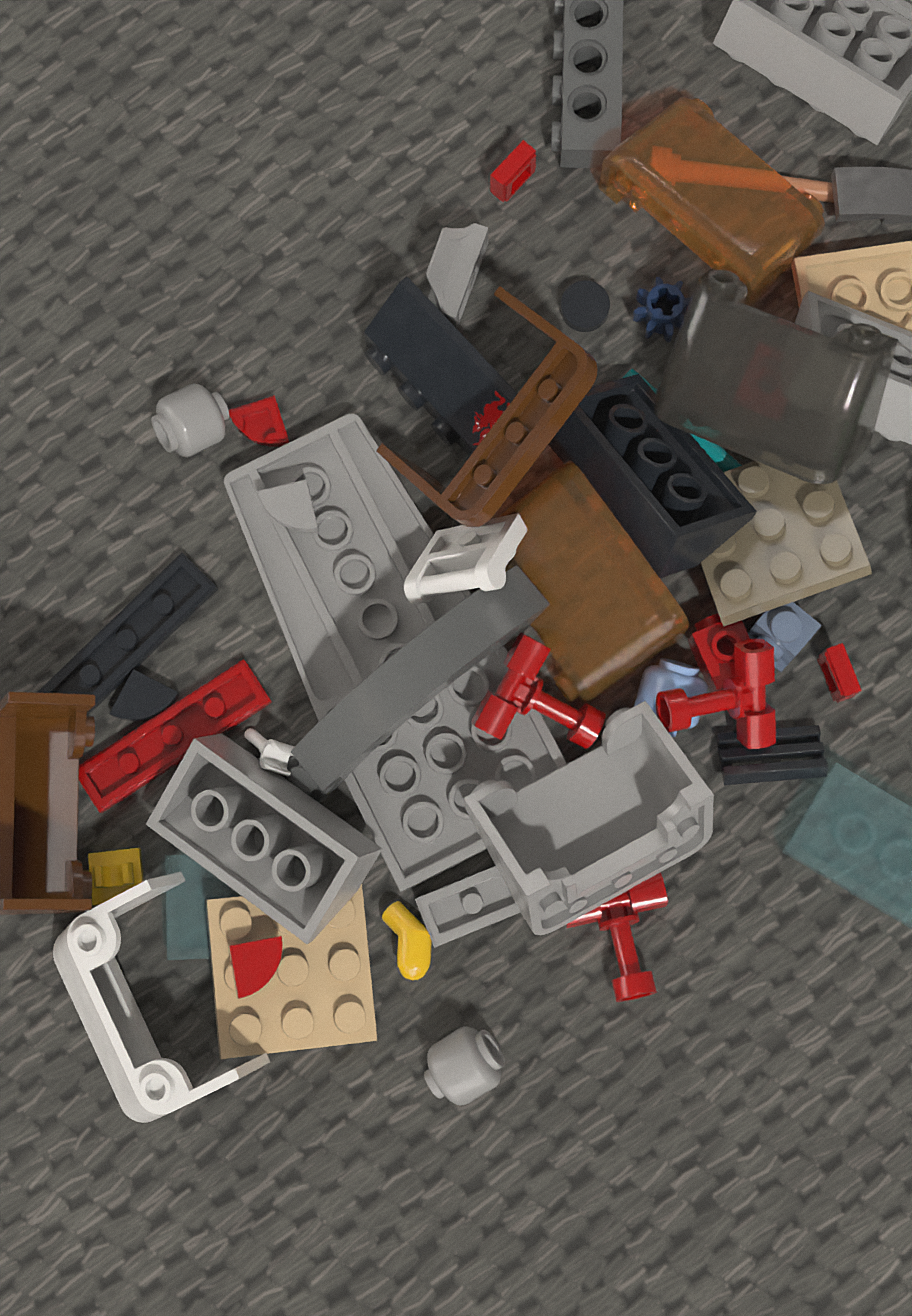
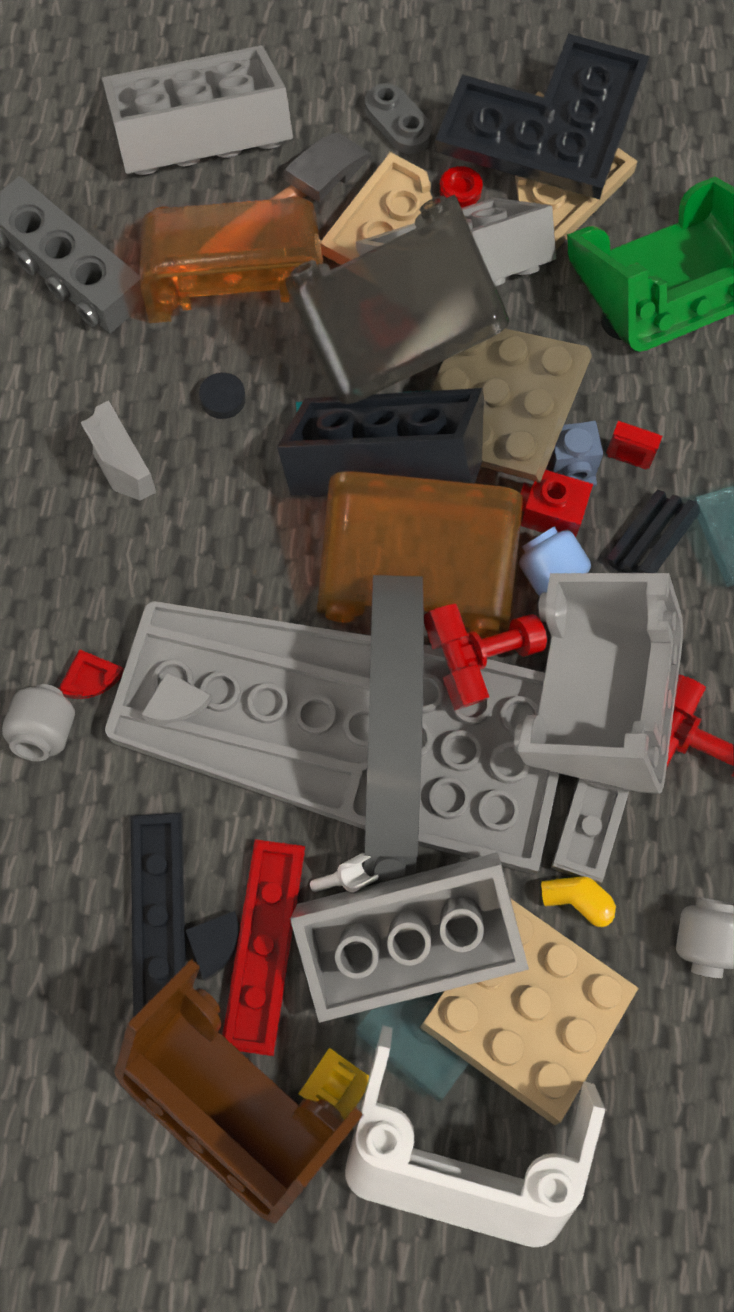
camera: 55 degrees left, 10 degrees down
(254, 964) = (509, 1026): red tile -> none
(436, 367) = (194, 513): black slope -> none
(465, 559) = (336, 604): white plate -> none
(513, 172) = (84, 358): red tile -> none
(517, 435) = (281, 430): reddish brown windscreen -> none
(653, 316) = (275, 347): dark blue gear -> none
(741, 696) = (600, 513): red bar -> none

